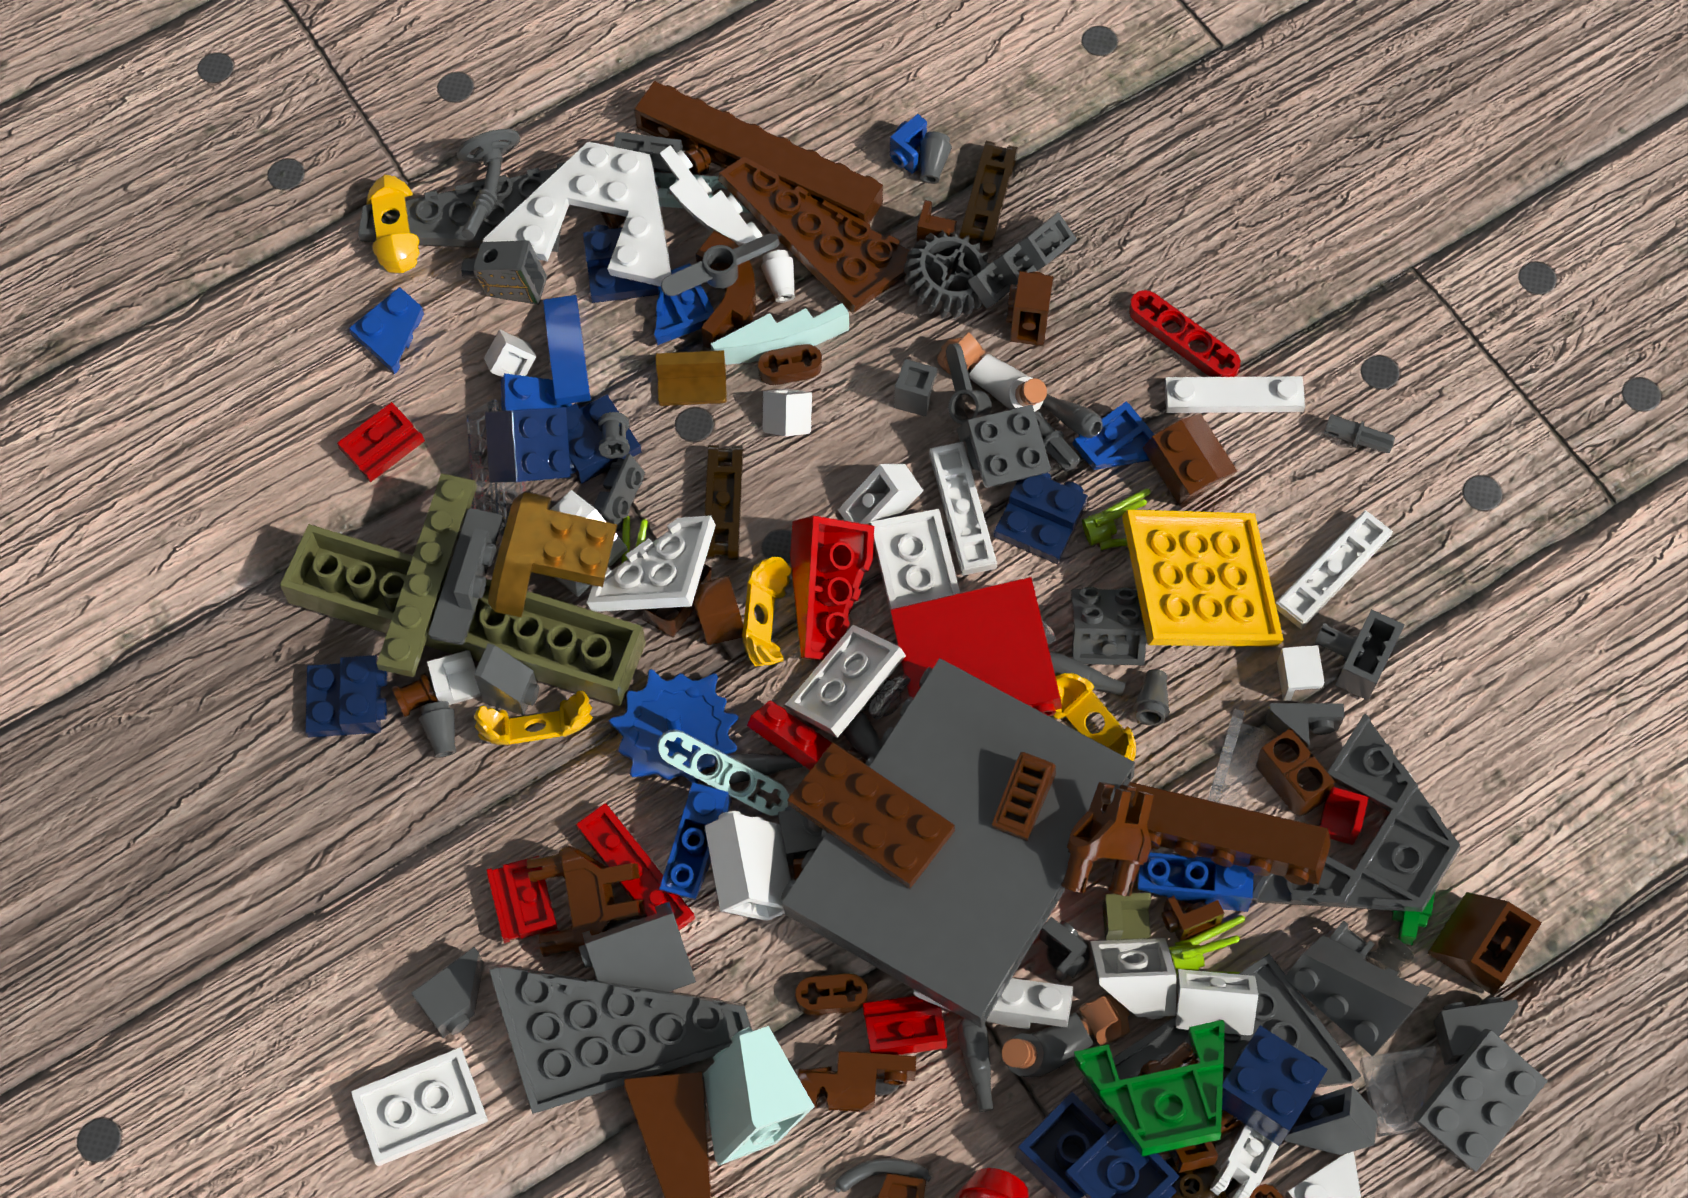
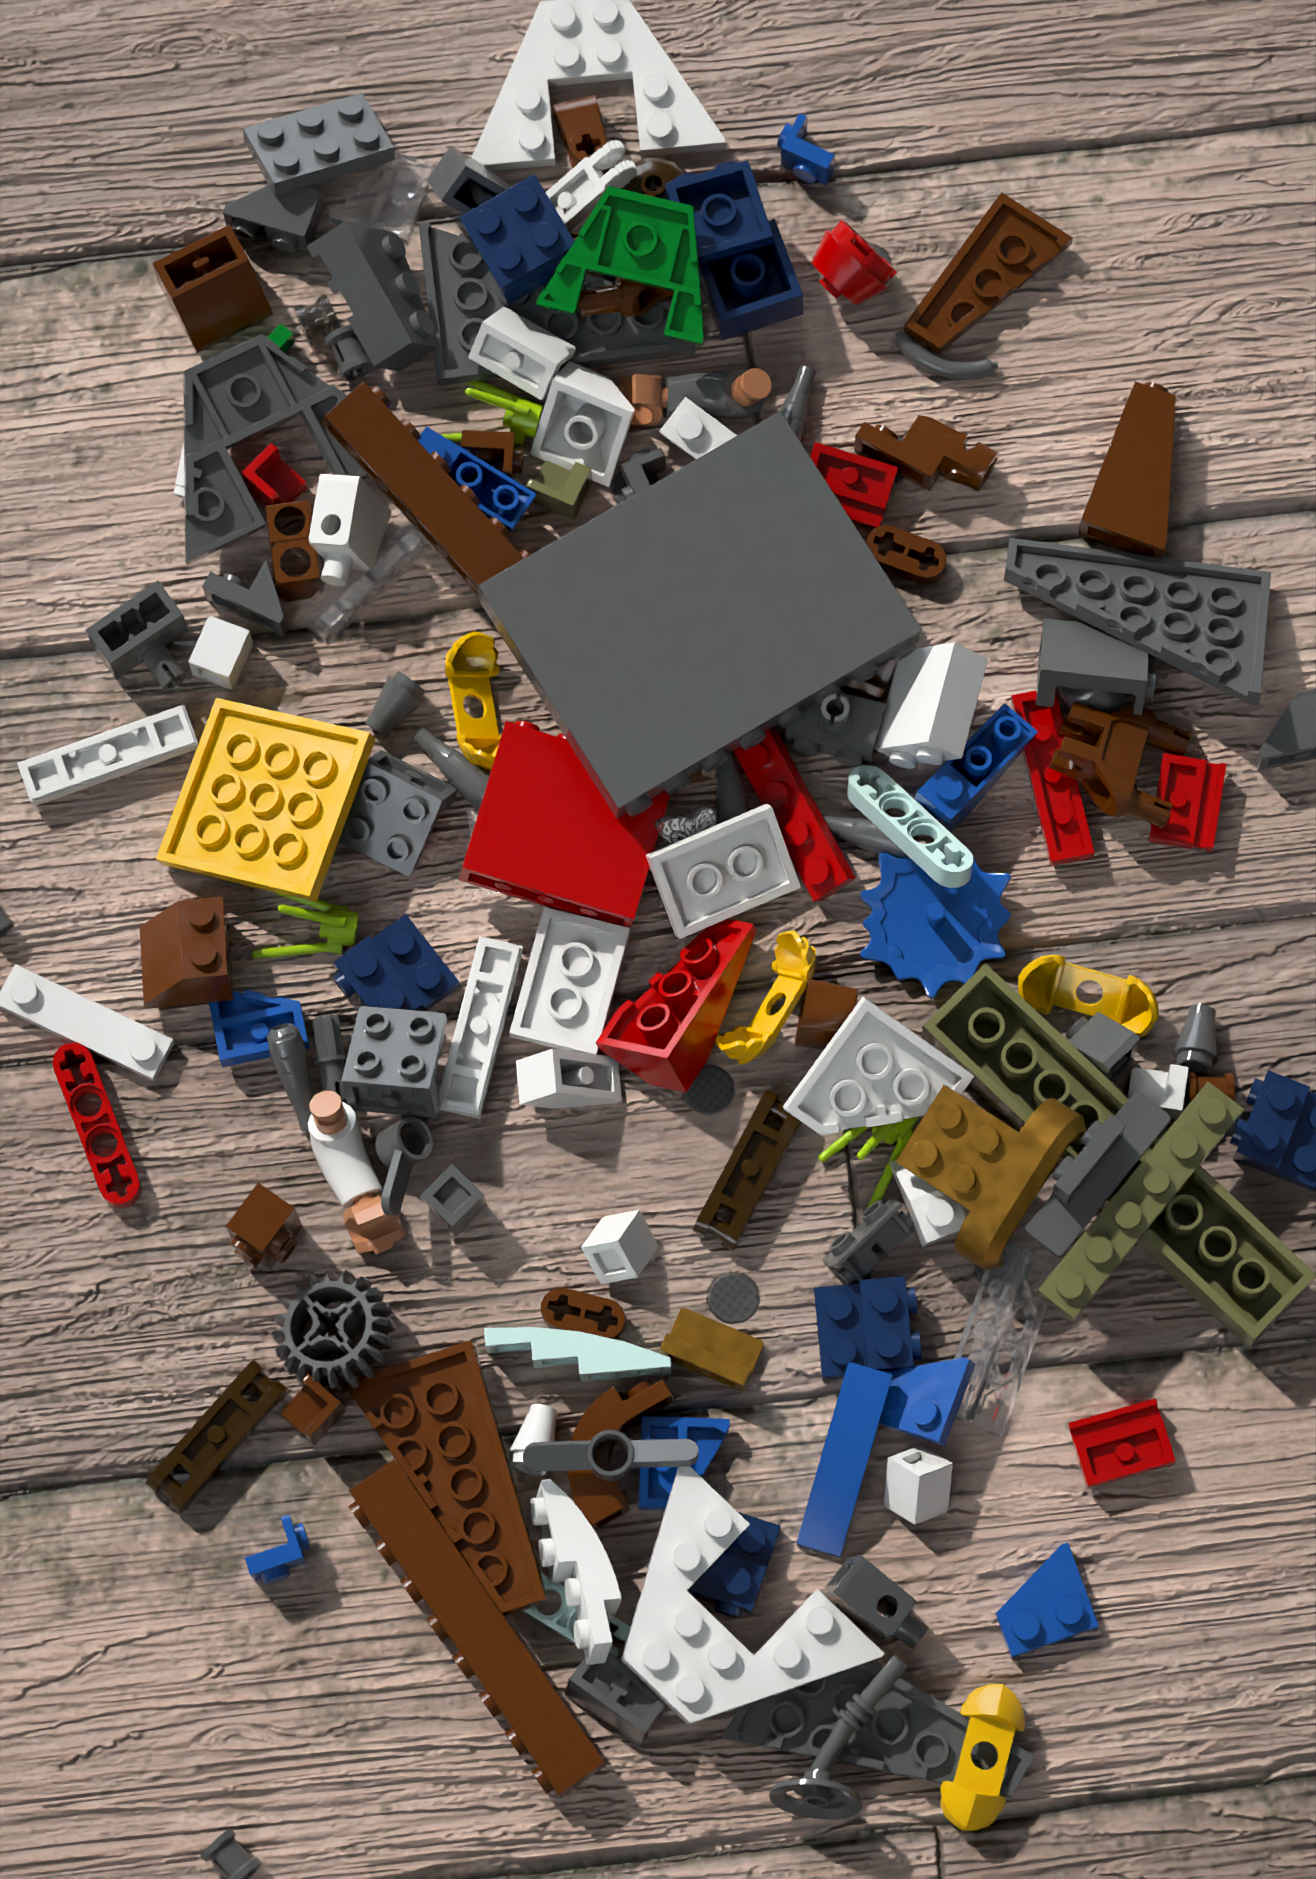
camera: 150 degrees left, 10 degrees up
(527, 444) = (953, 1318): dark blue brick -> none
(613, 435) = (844, 1292): dark grey bush -> none
(699, 158) = (557, 1660): reddish brown plate -> none
(752, 1095) = (1044, 465): light aqua slope -> none
(871, 815) = (784, 667): reddish brown plate -> none
(933, 156) = (255, 1523): dark grey cone -> none
(1026, 255) = (223, 1309): dark grey slope -> none
(1038, 767) = (590, 626): reddish brown slope -> none
(1111, 832) = (553, 519): reddish brown connector -> none
(1266, 786) = (346, 526): none -> white torso

